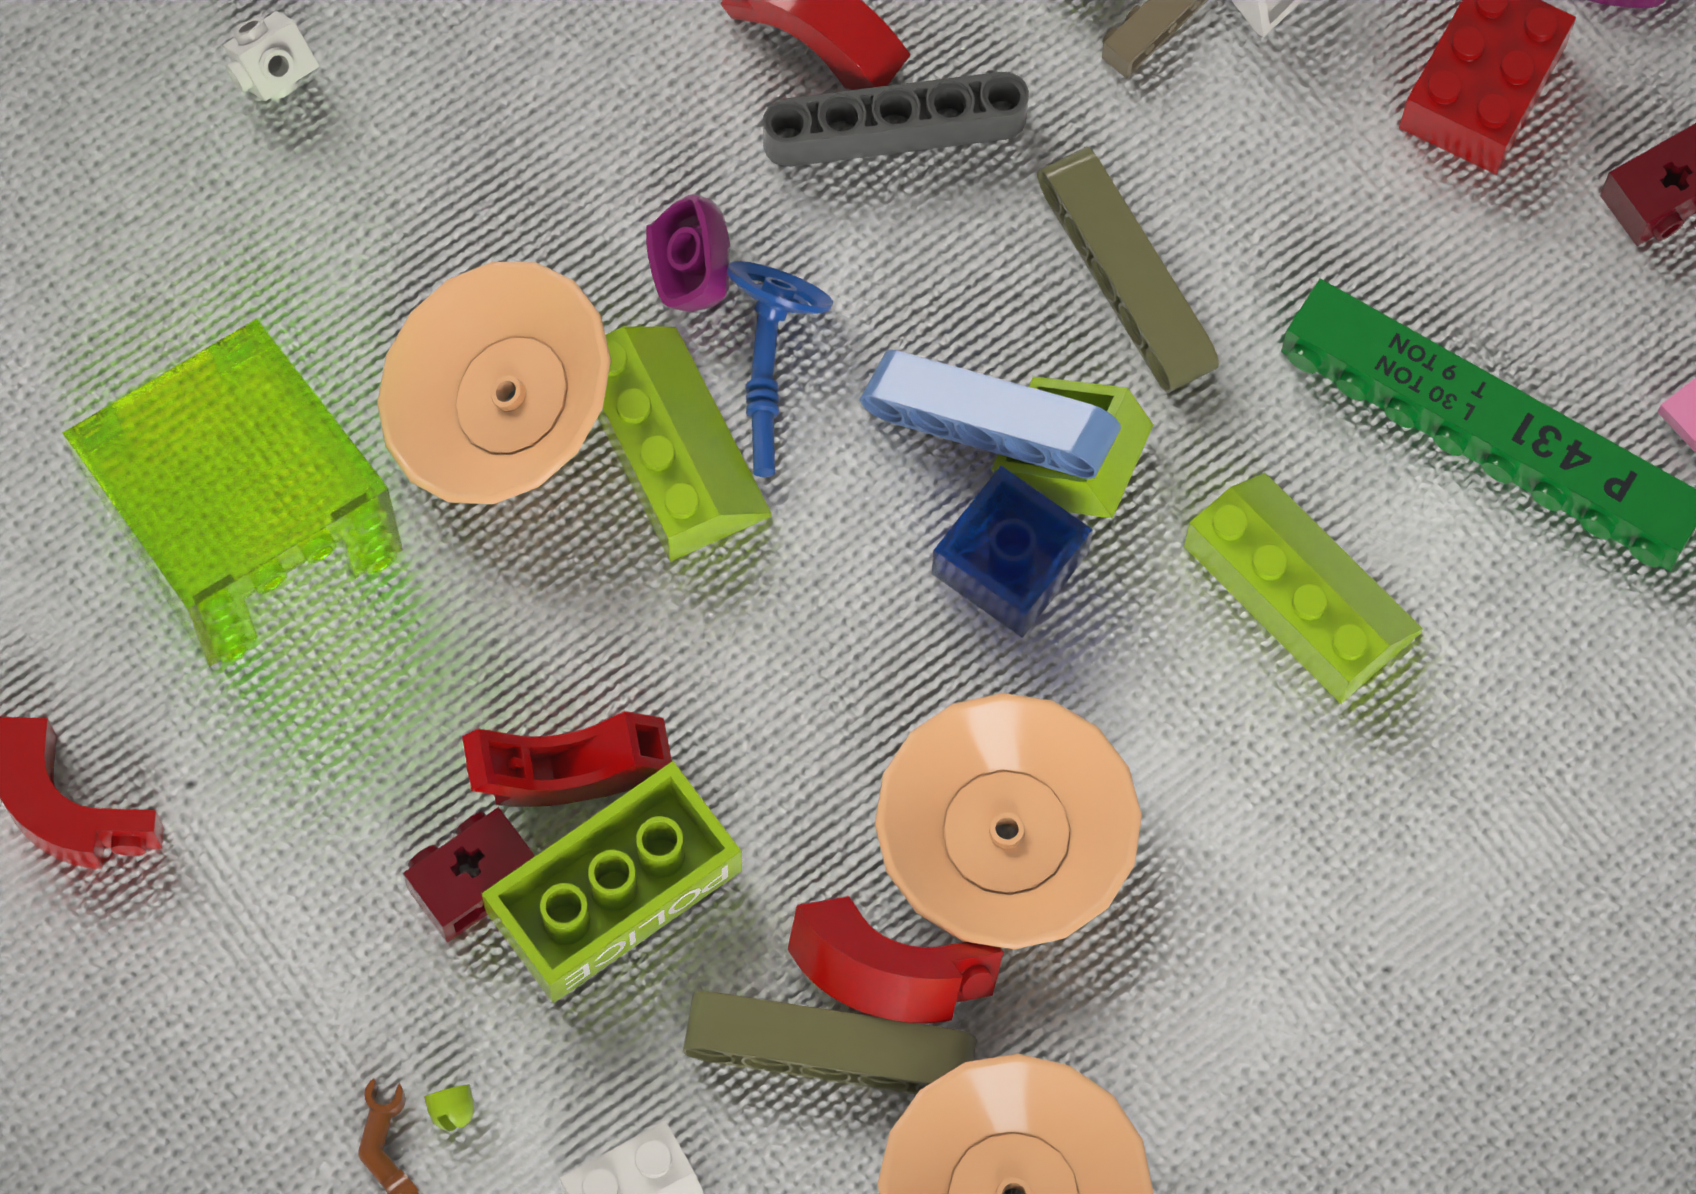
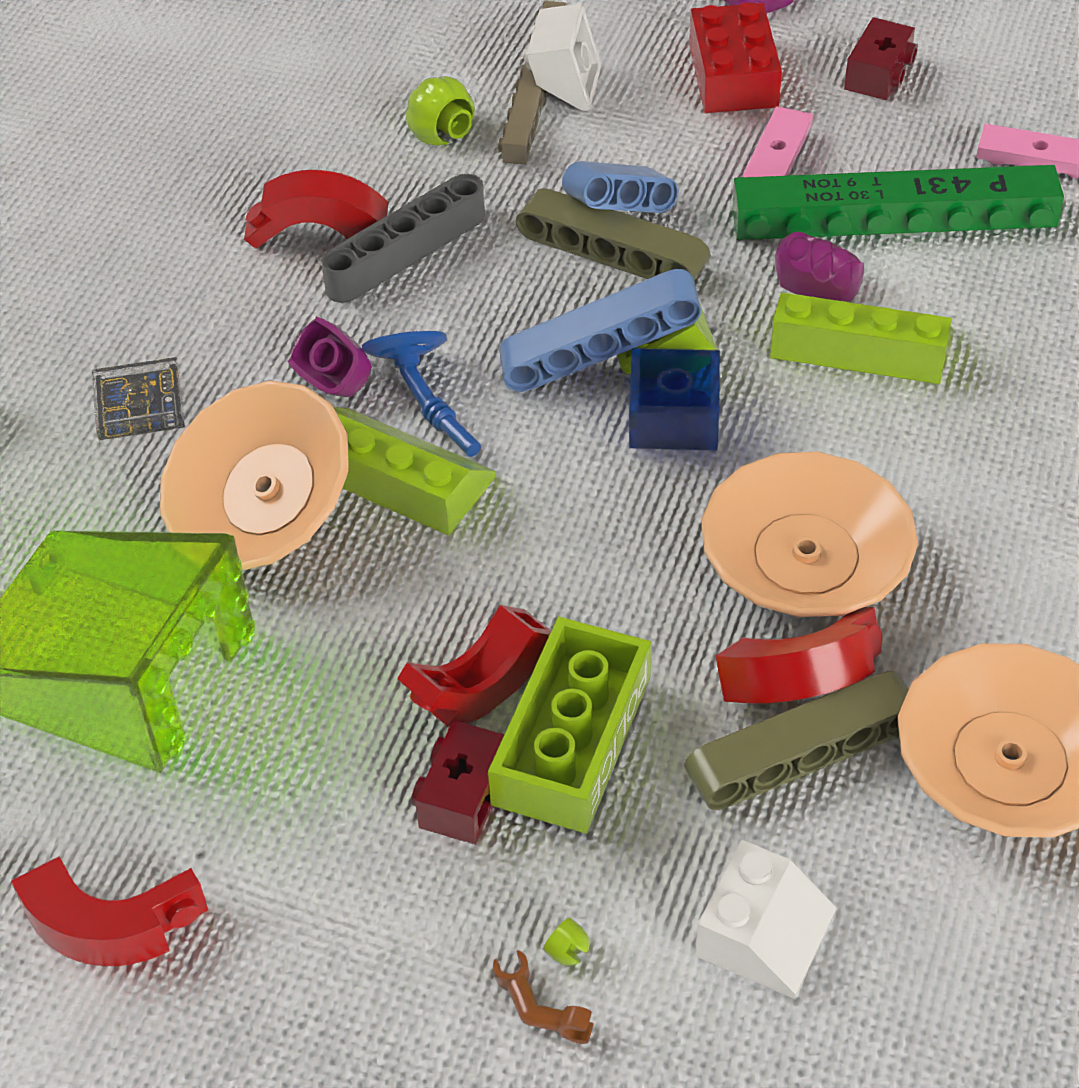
camera: 30 degrees left, 20 degrees down
(467, 169) = (138, 398): none -> clear tile
(1178, 209) = (620, 187): none -> medium blue beam
(1328, 463) = (817, 268): none -> magenta piece
(1446, 236) = (779, 143): none -> bright pink tile

